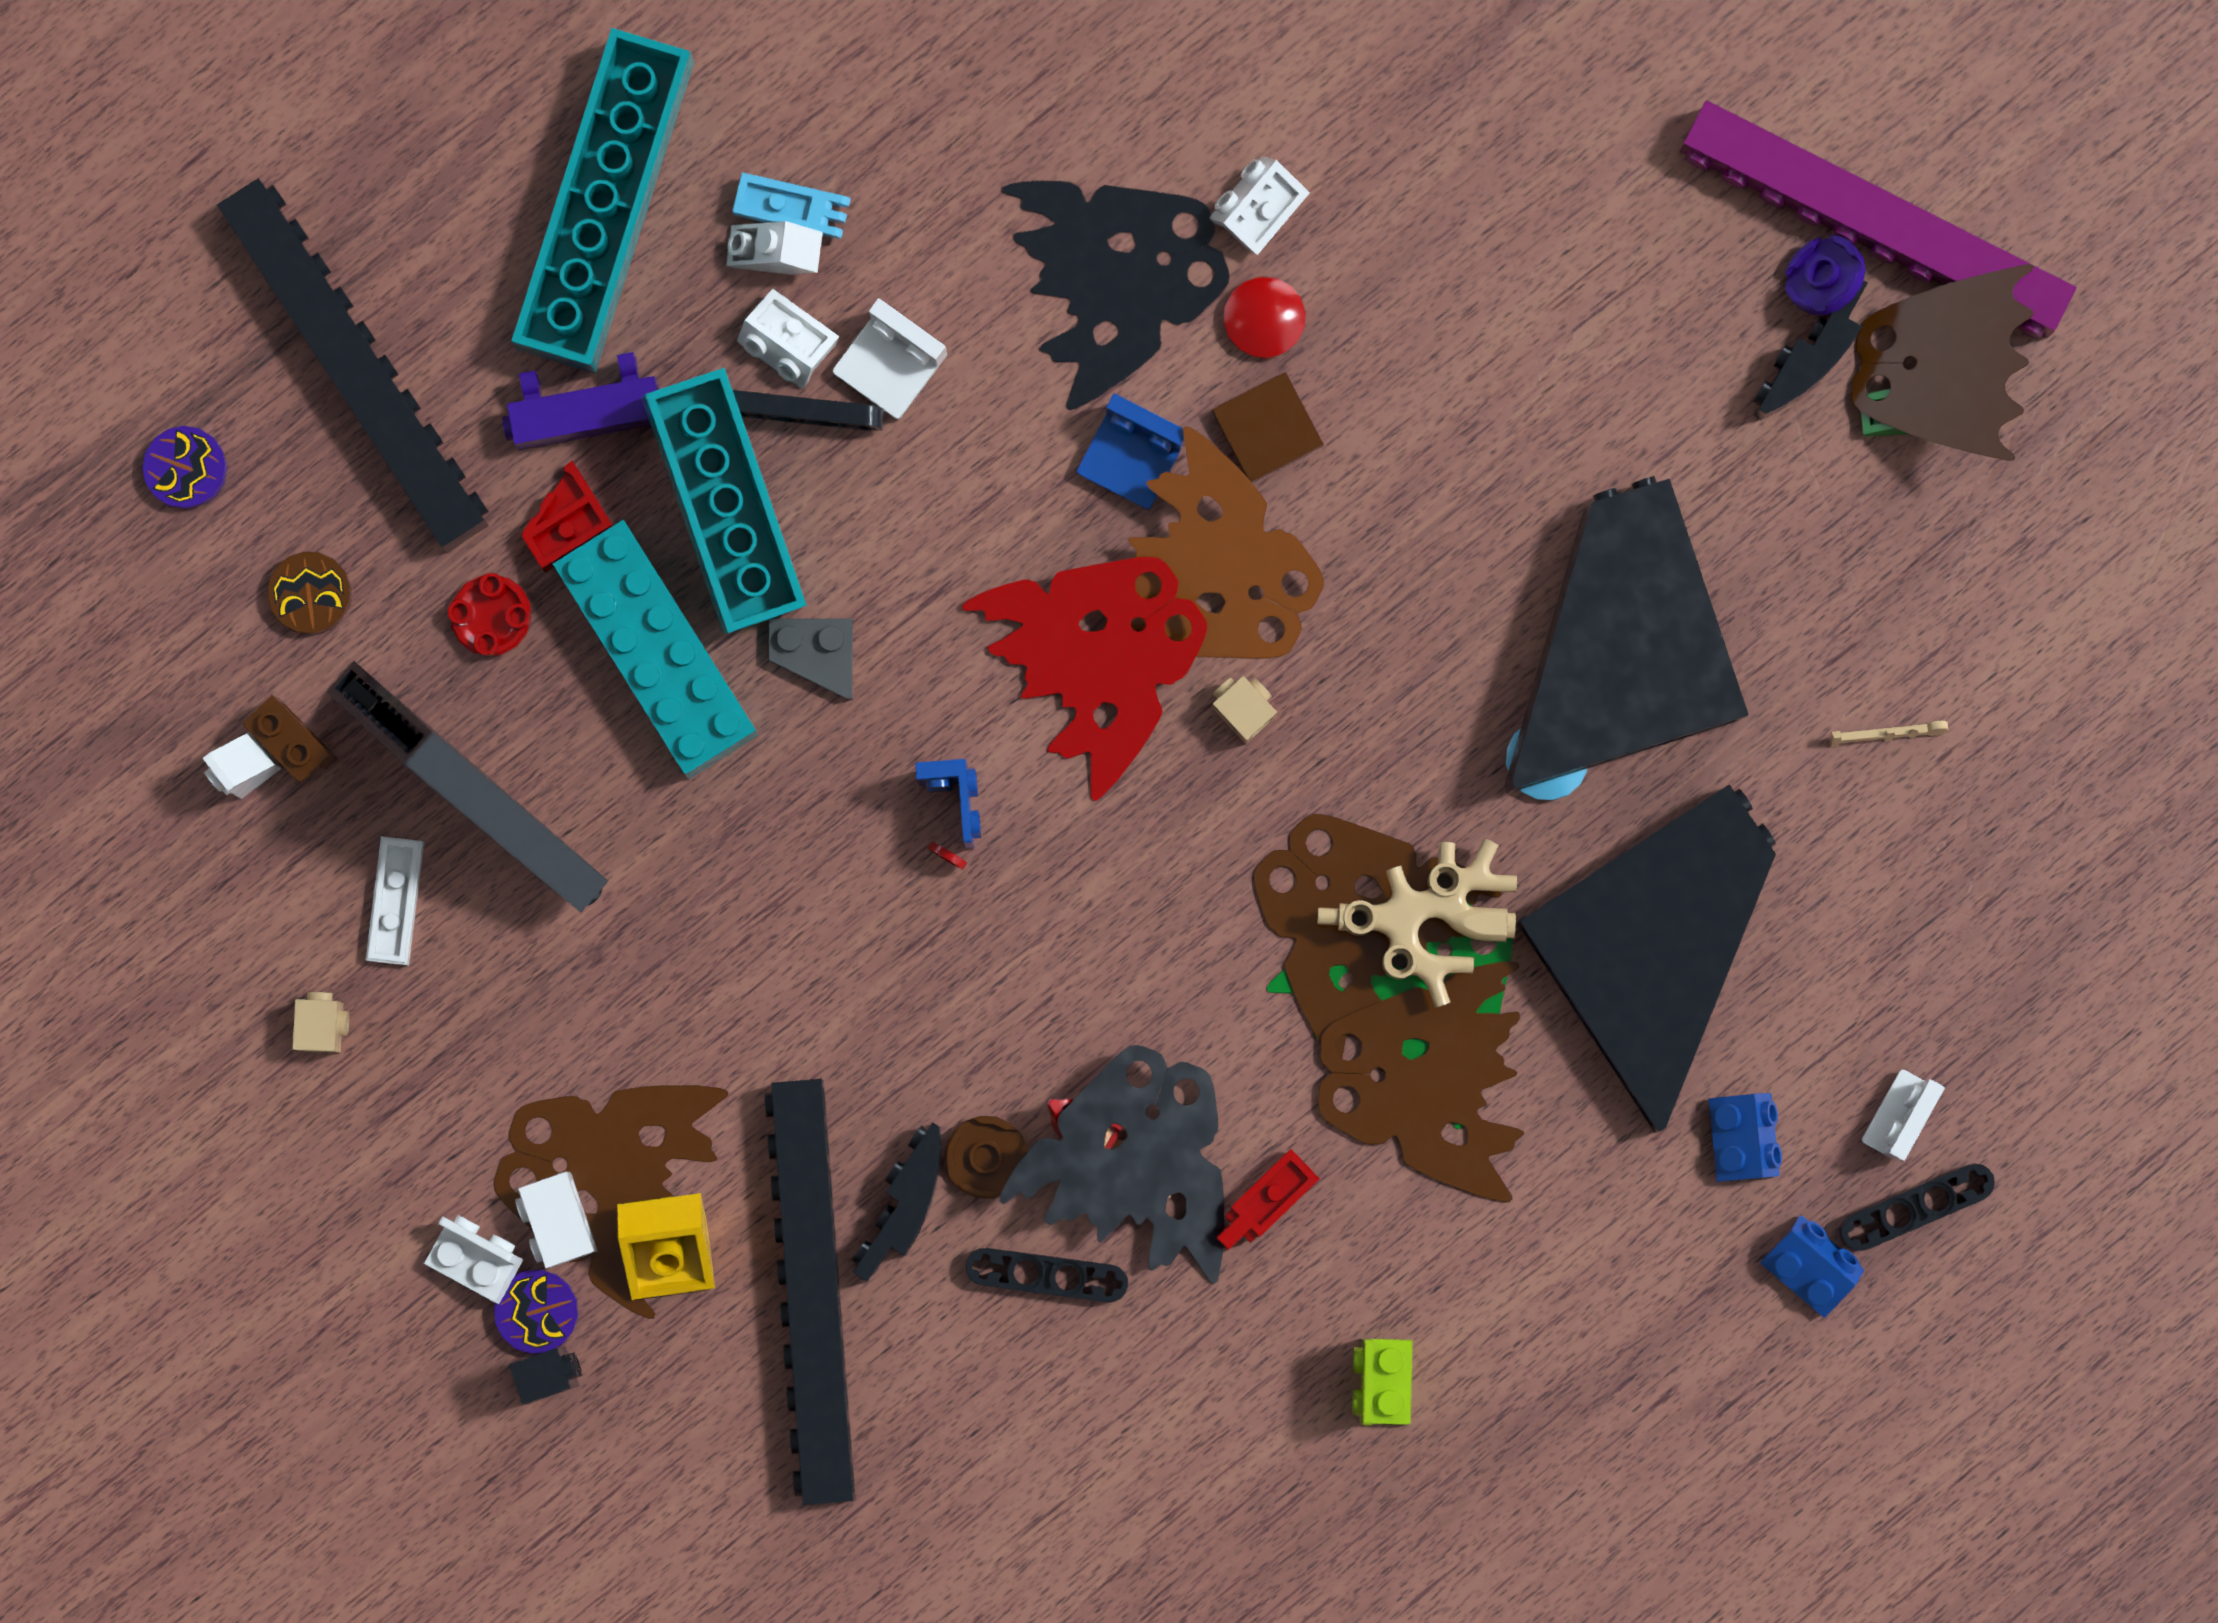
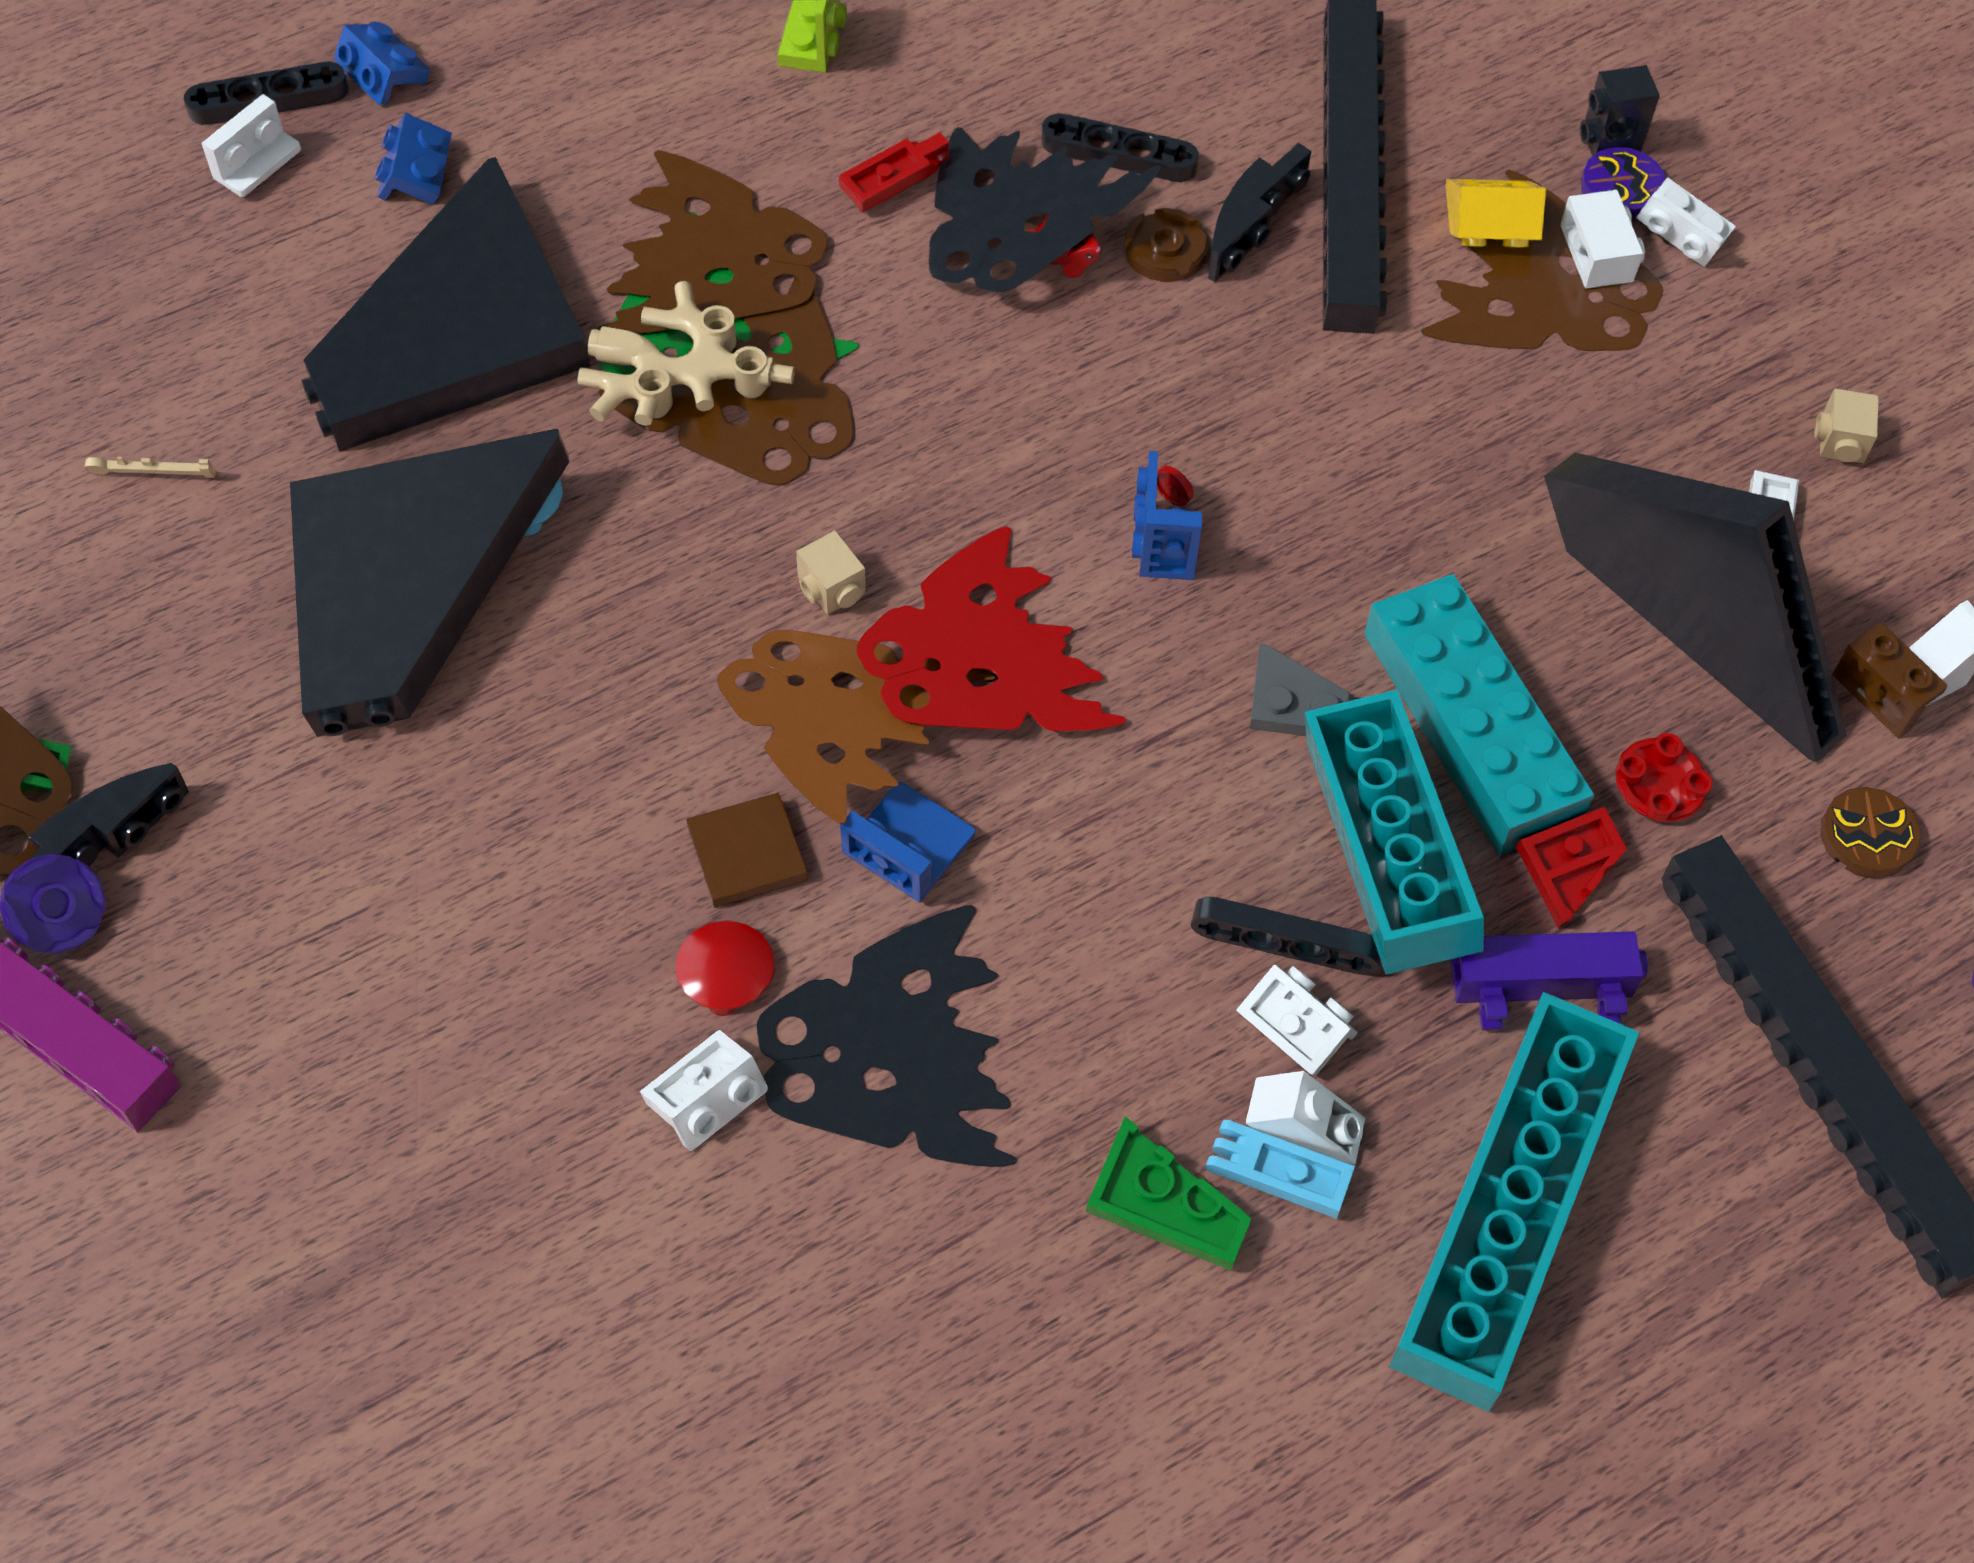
camera: 175 degrees left, 25 degrees down
(879, 165) = (1161, 1200): none -> green wing
(890, 360) = (1176, 976): white bracket -> none

